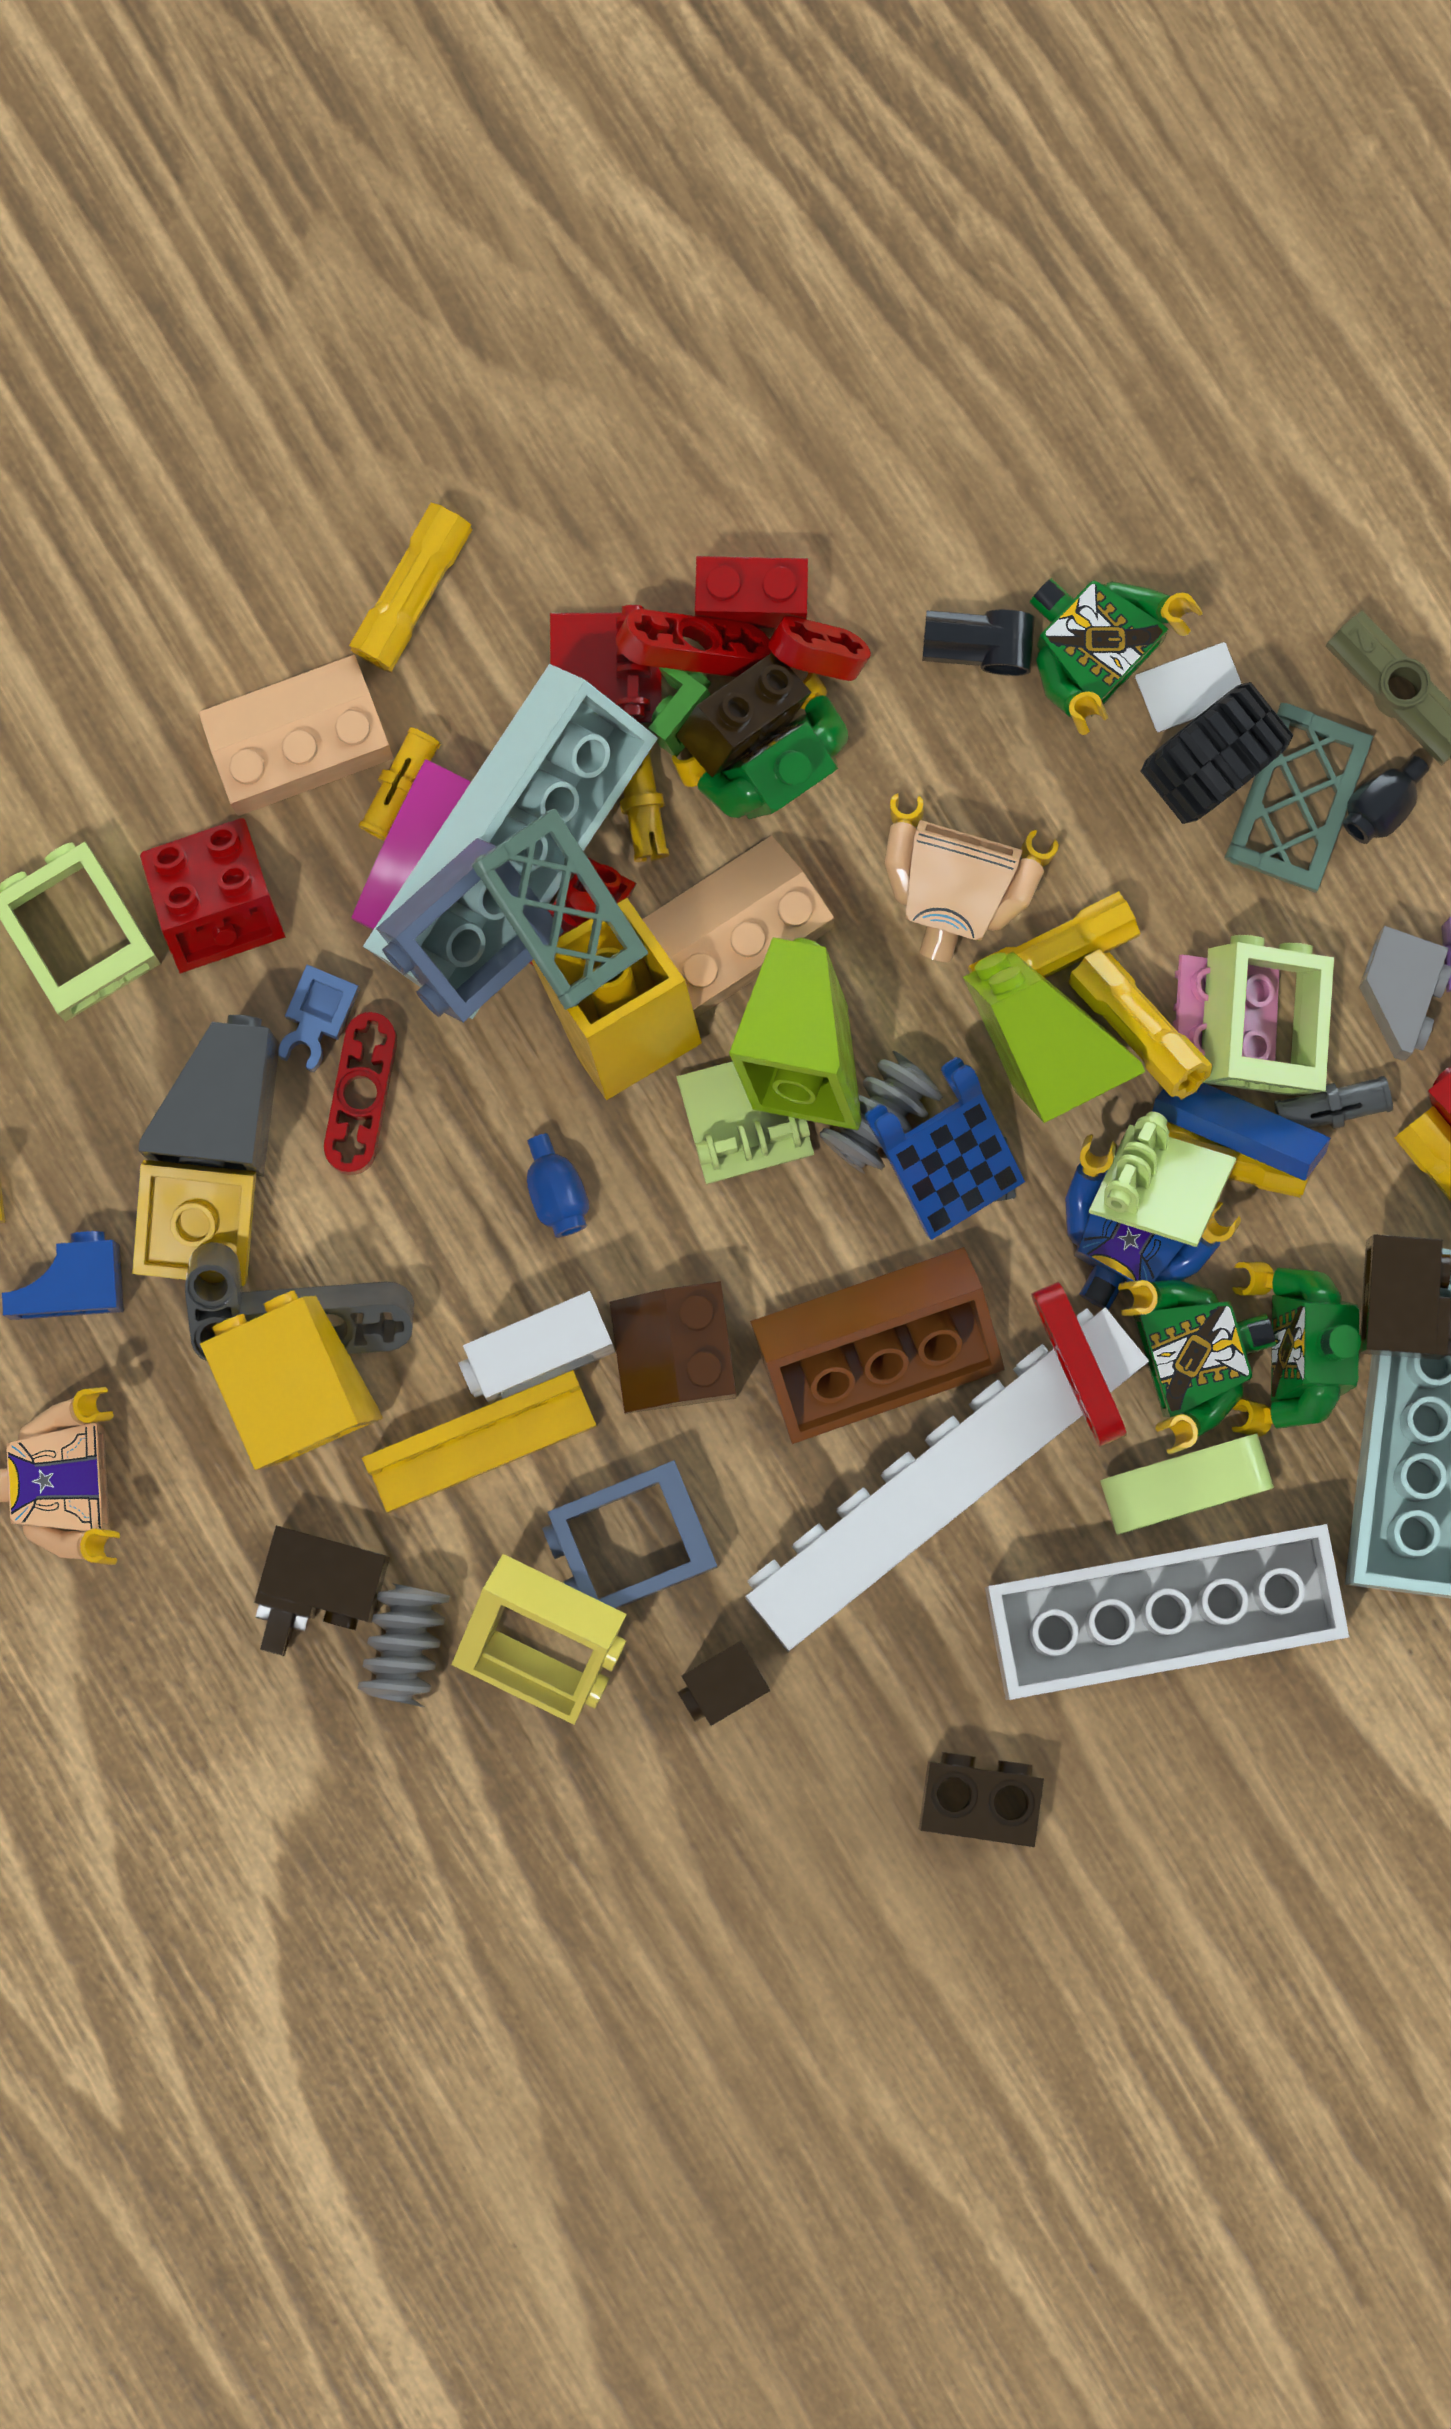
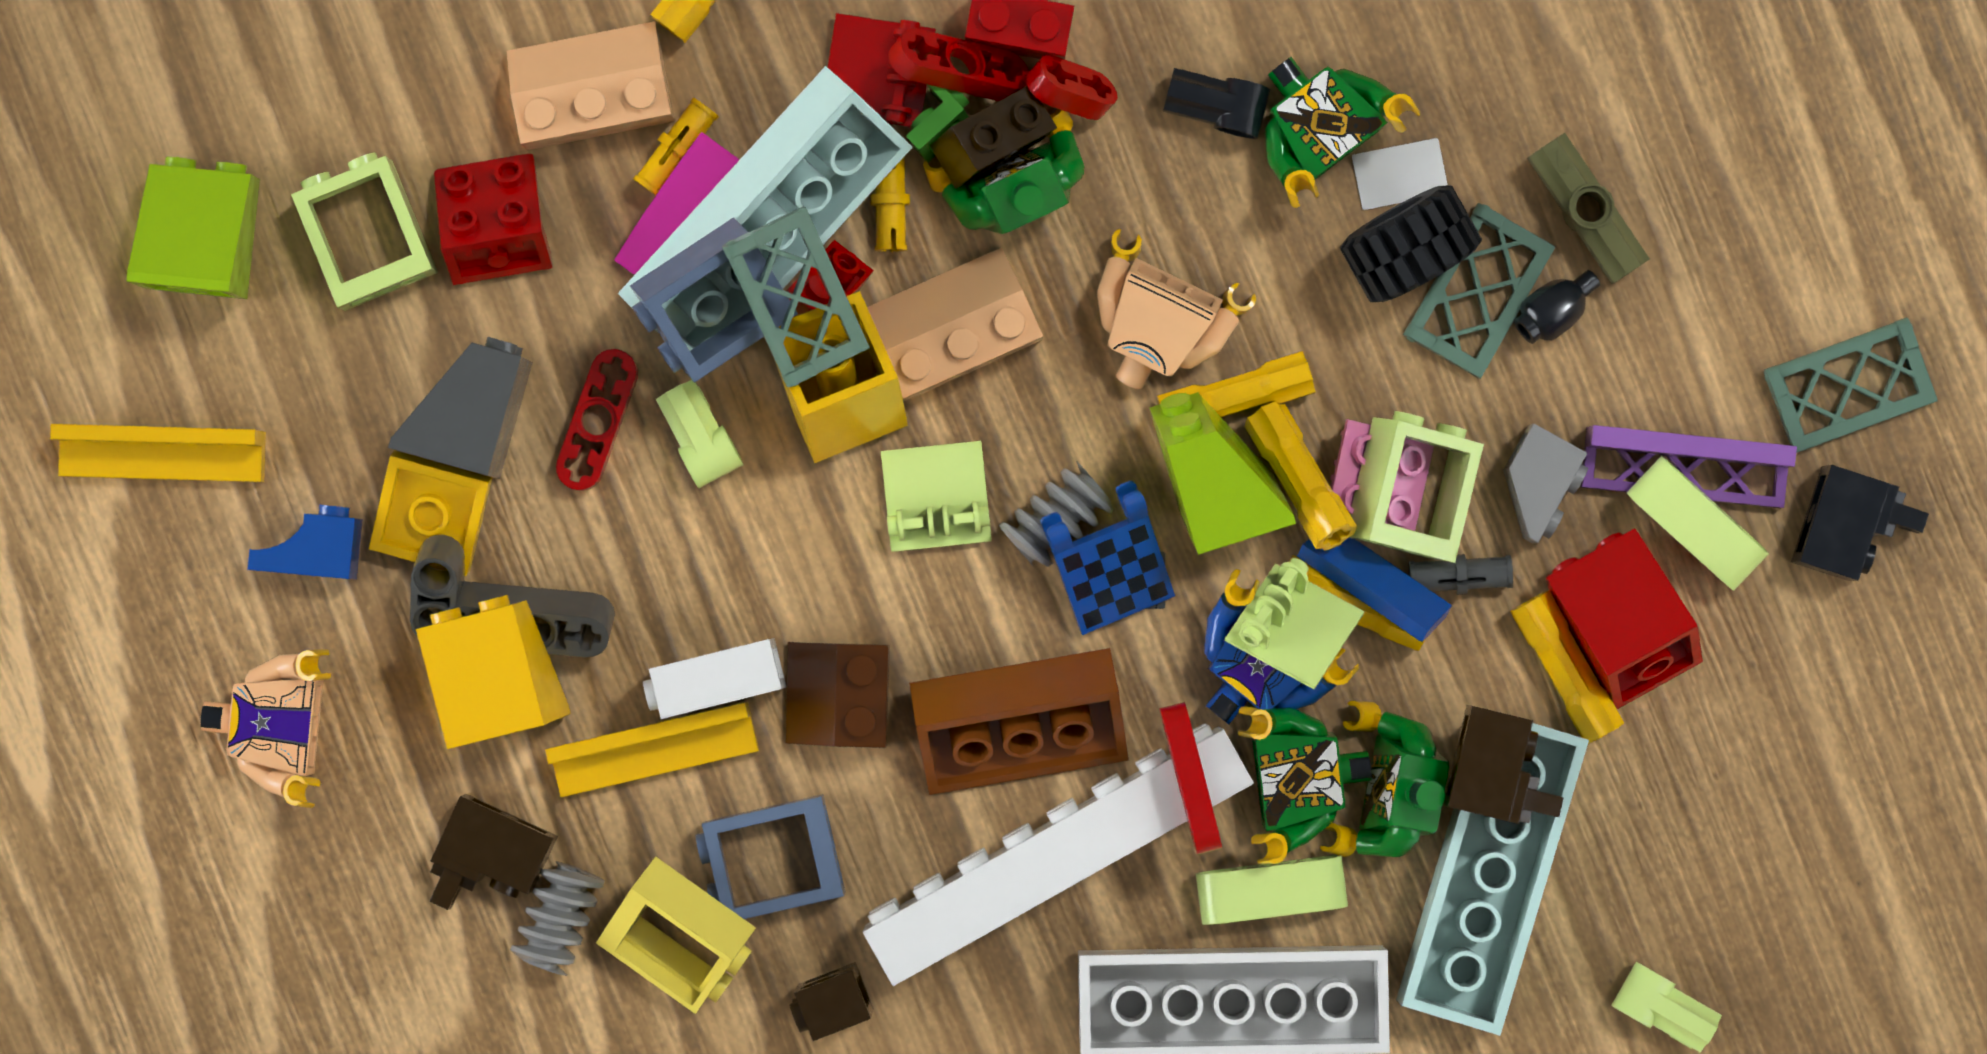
camera: 10 degrees right, 5 degrees up
(319, 1008) = (573, 337): medium blue plate -> none
(481, 1099) = (702, 442): none -> yellowish green piece
(556, 1189) = (756, 535): blue plant -> none
(798, 1039) = (993, 440): lime slope -> none

